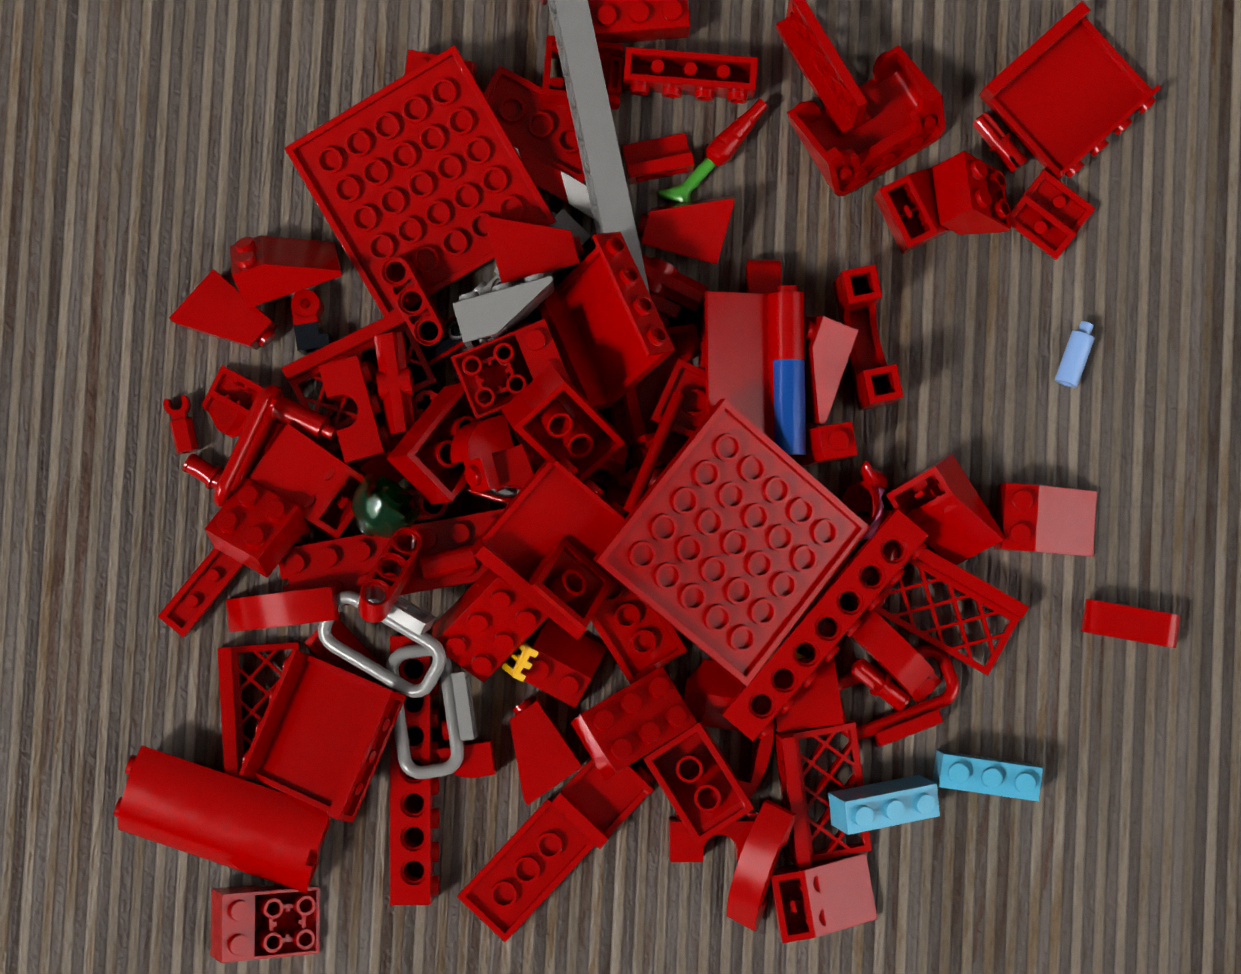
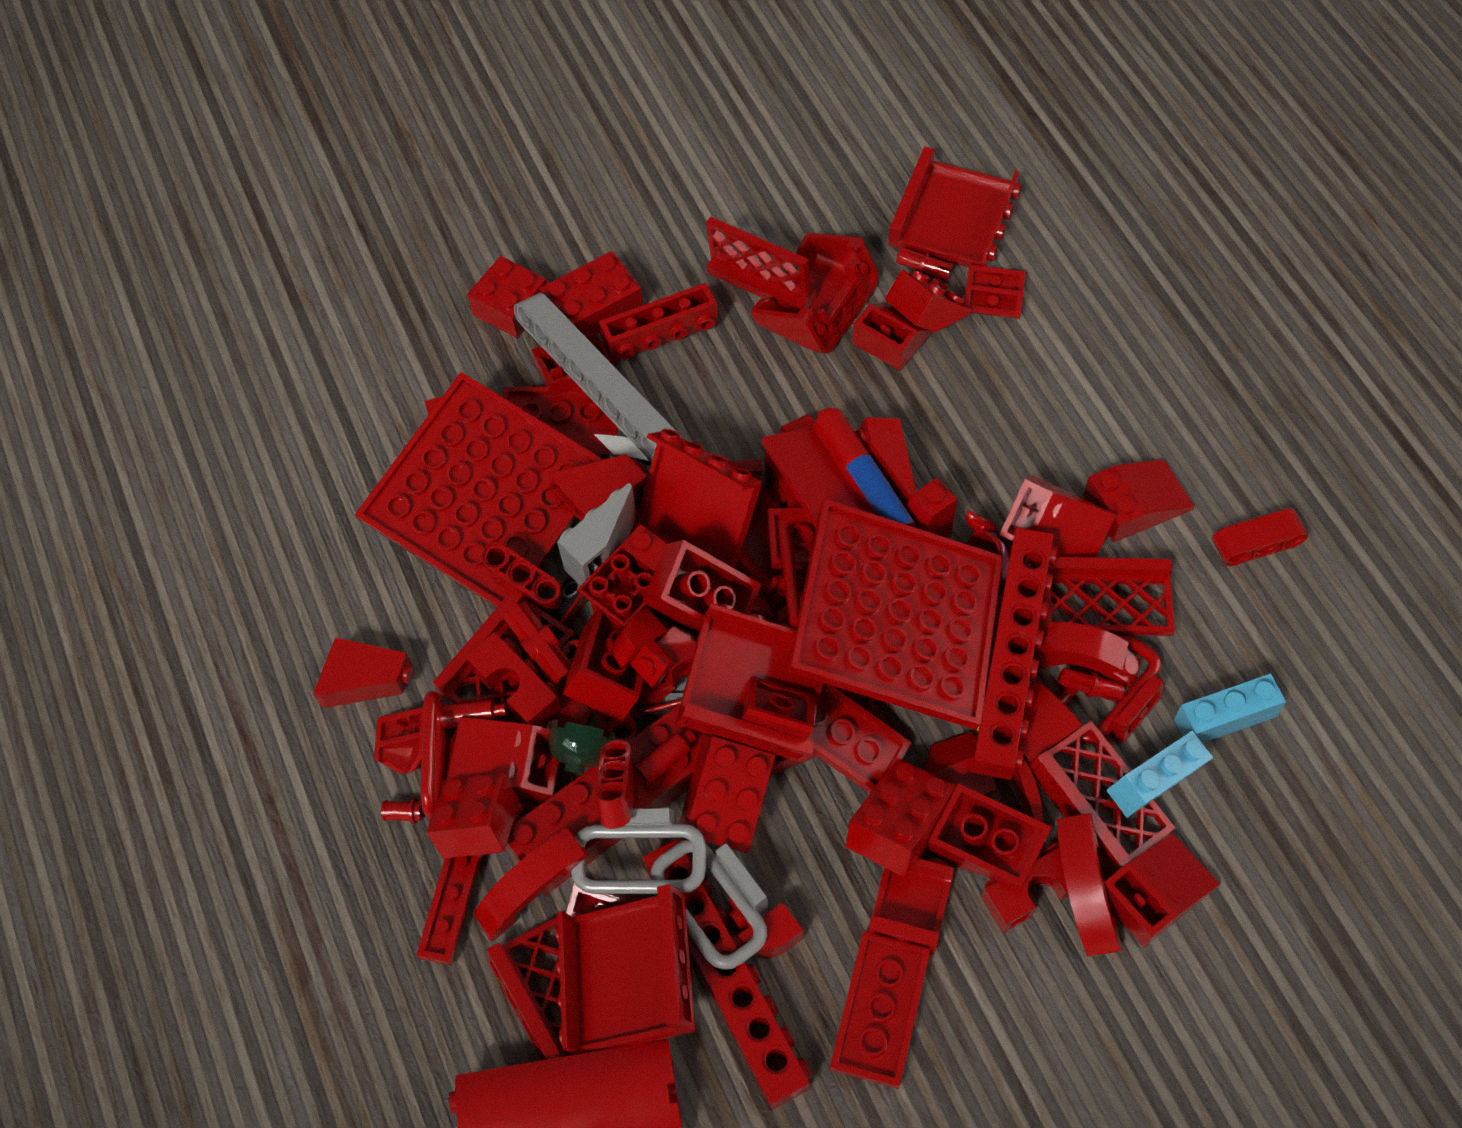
camera: 20 degrees left, 25 degrees down
(182, 426) = (365, 784): red bar -> none
(280, 266) = (385, 612): red slope -> none
(306, 315) = (436, 642): leg -> none
(521, 661) = (768, 820): yellow tile -> none
(540, 750) = (832, 892): red slope -> none
(563, 663) = (808, 811): red slope -> none
(658, 158) = (673, 392): red panel -> none
(689, 227) = (724, 422): red slope -> none
(717, 152) = (712, 369): red piece -> none
(856, 299) = (930, 454): red arch -> none
(1075, 356) = (1080, 374): light blue cylinder -> none

